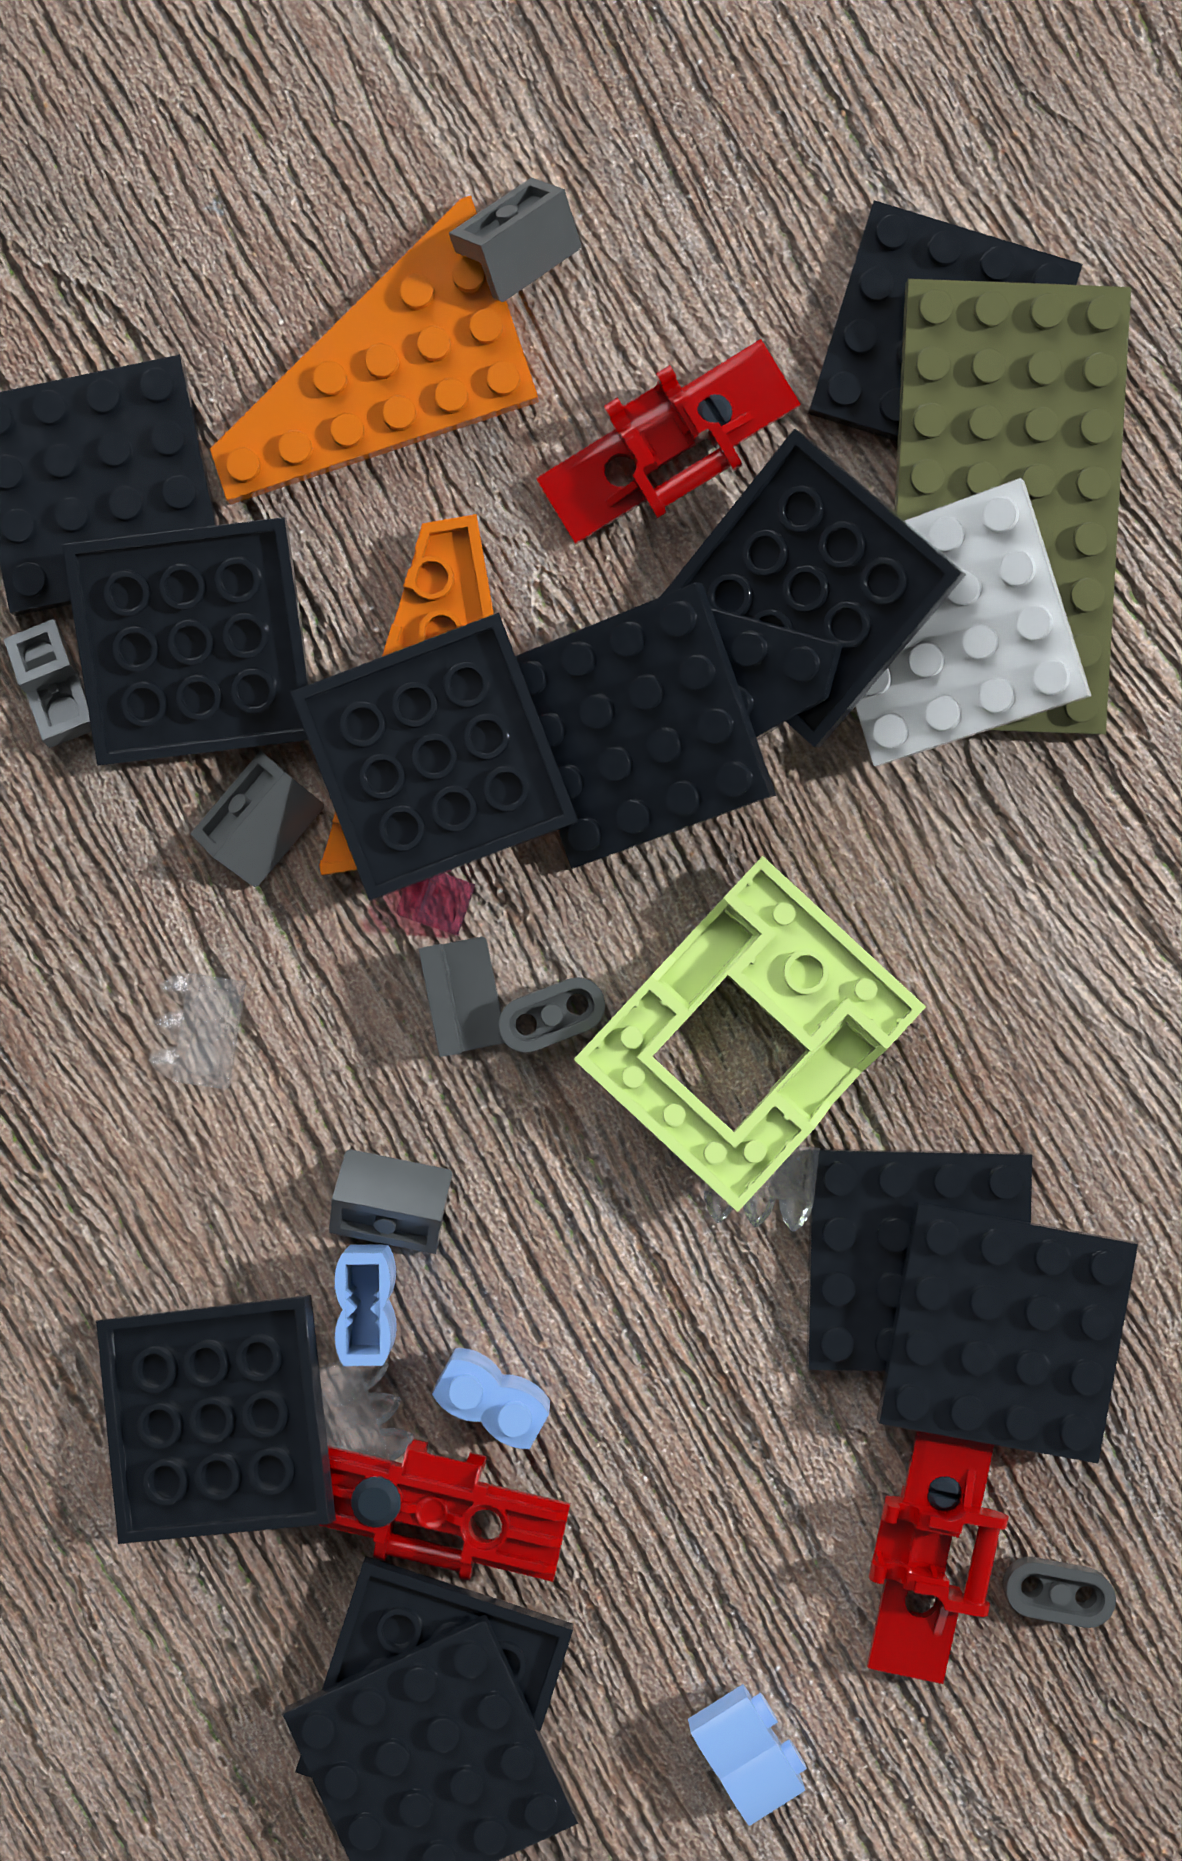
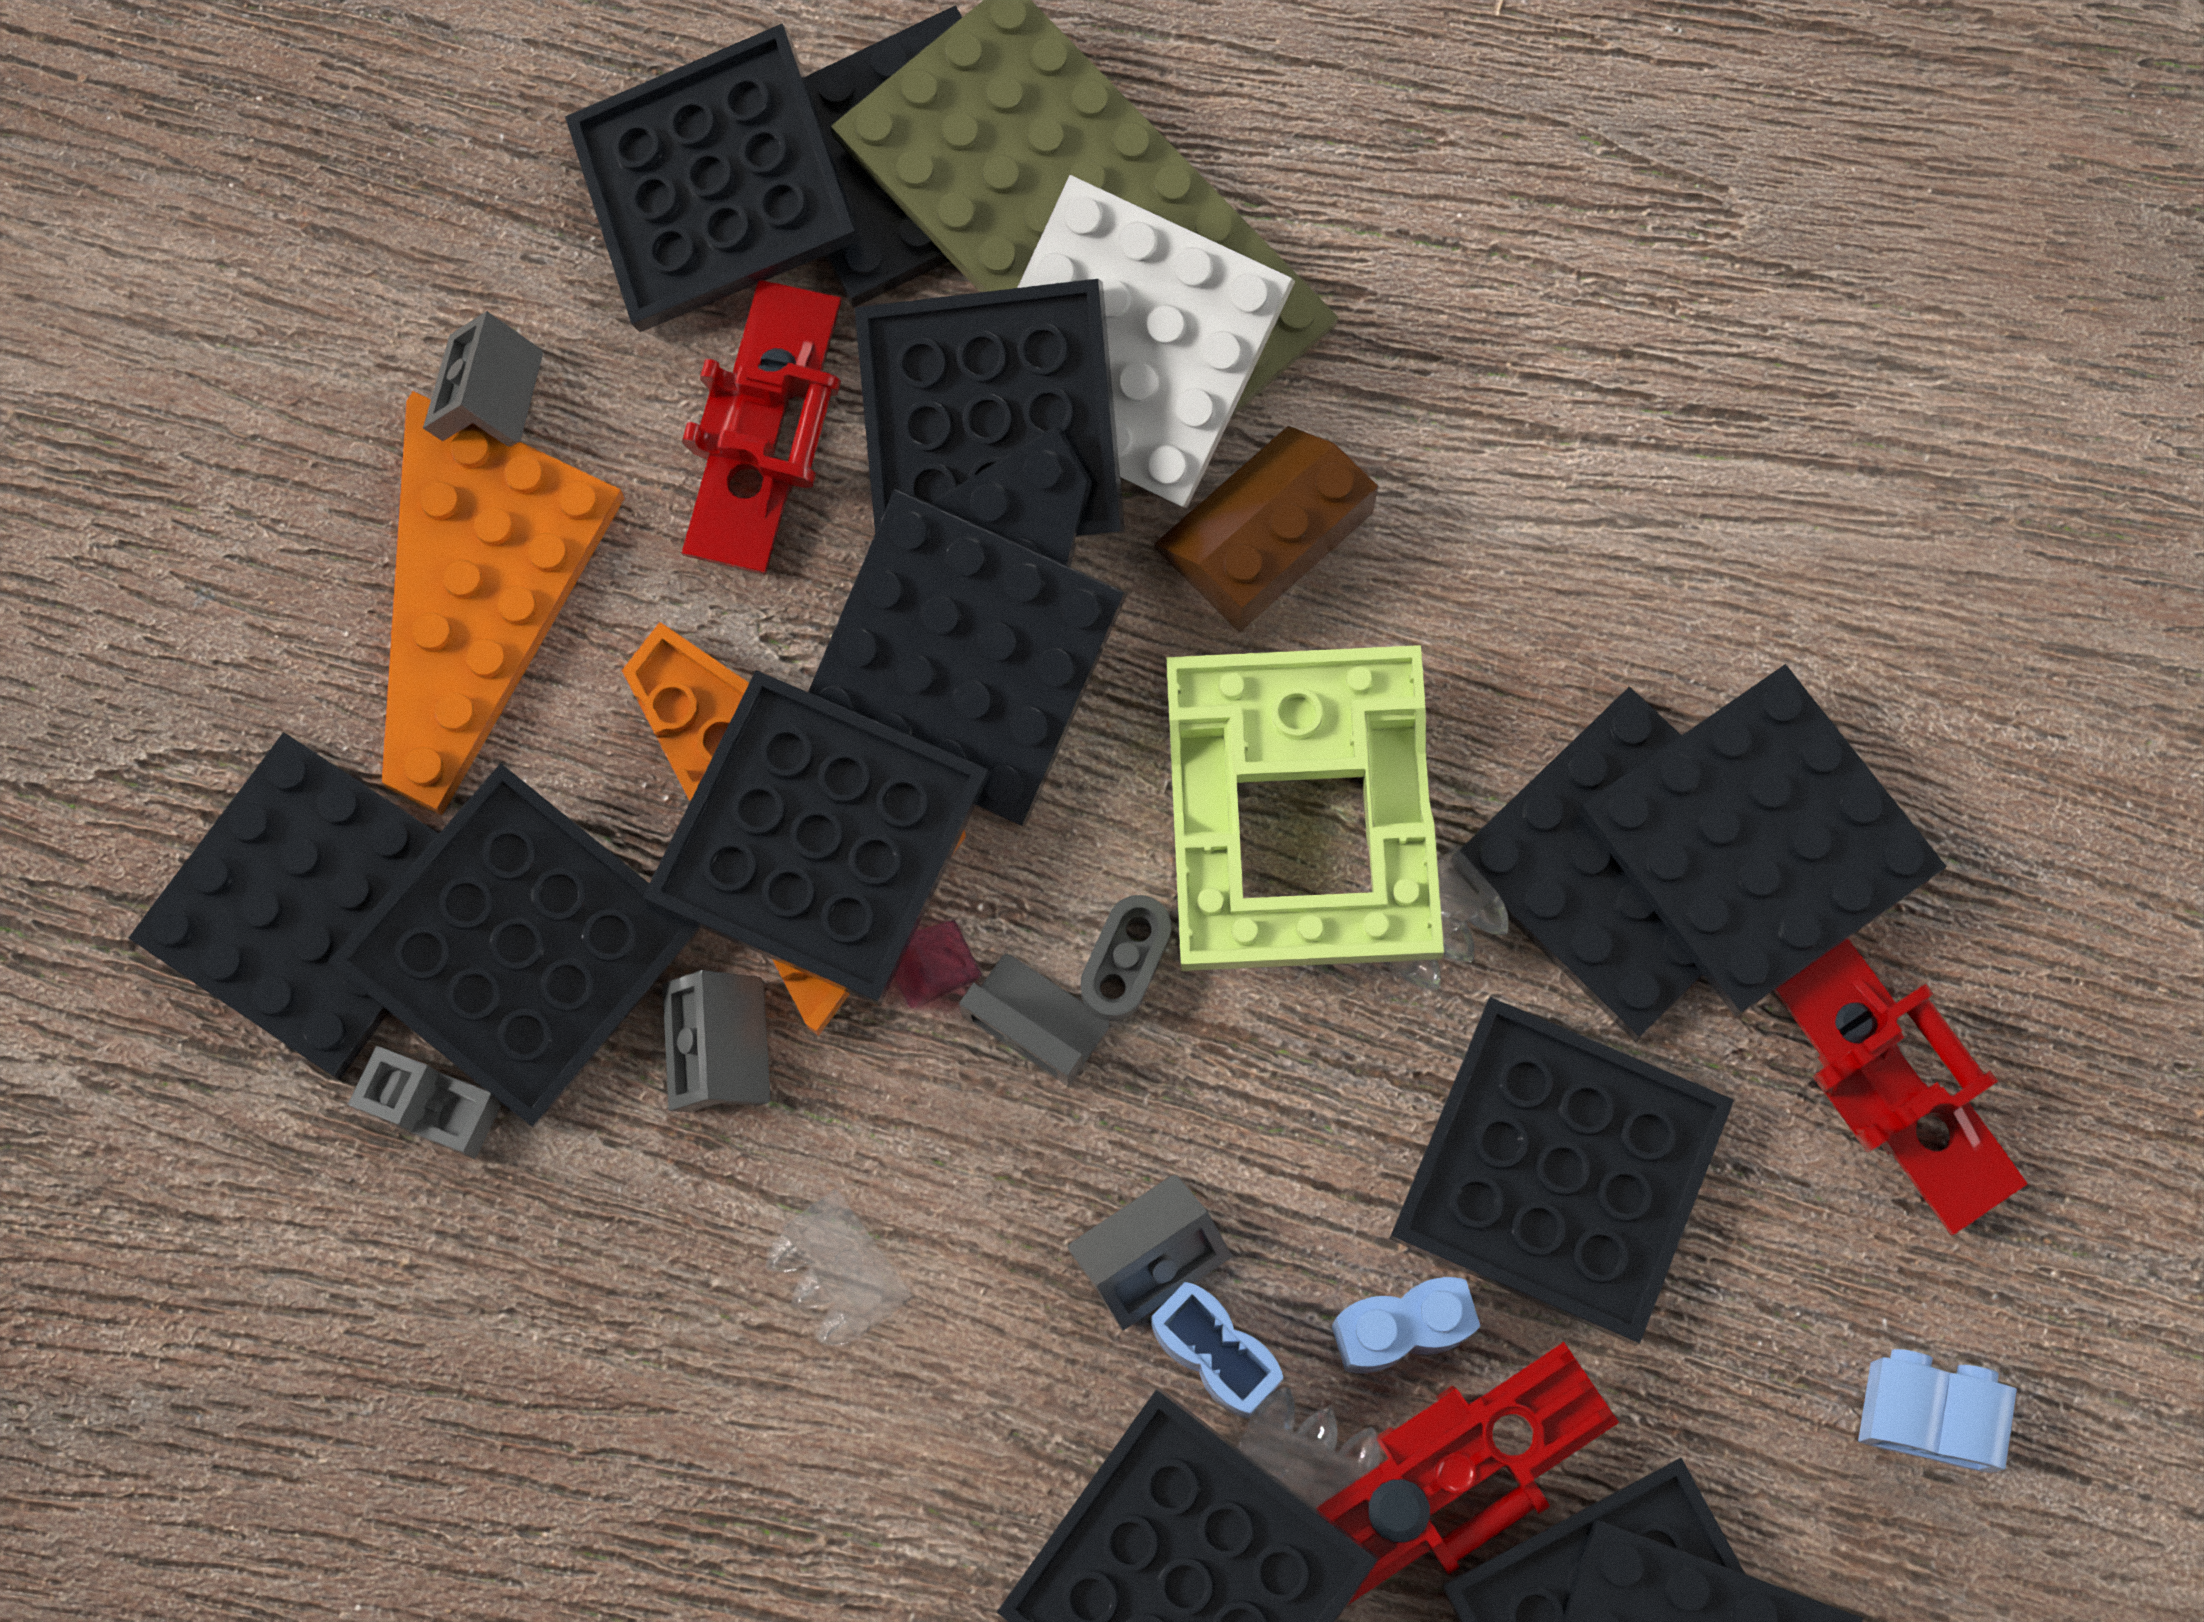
camera: 45 degrees left, 15 degrees down
(679, 1400) = (1562, 1171): none -> black plate
(800, 234) = (711, 178): none -> black plate
(919, 824) = (1269, 524): none -> reddish brown slope
(1056, 1592) = (2031, 1014): dark grey plate -> none

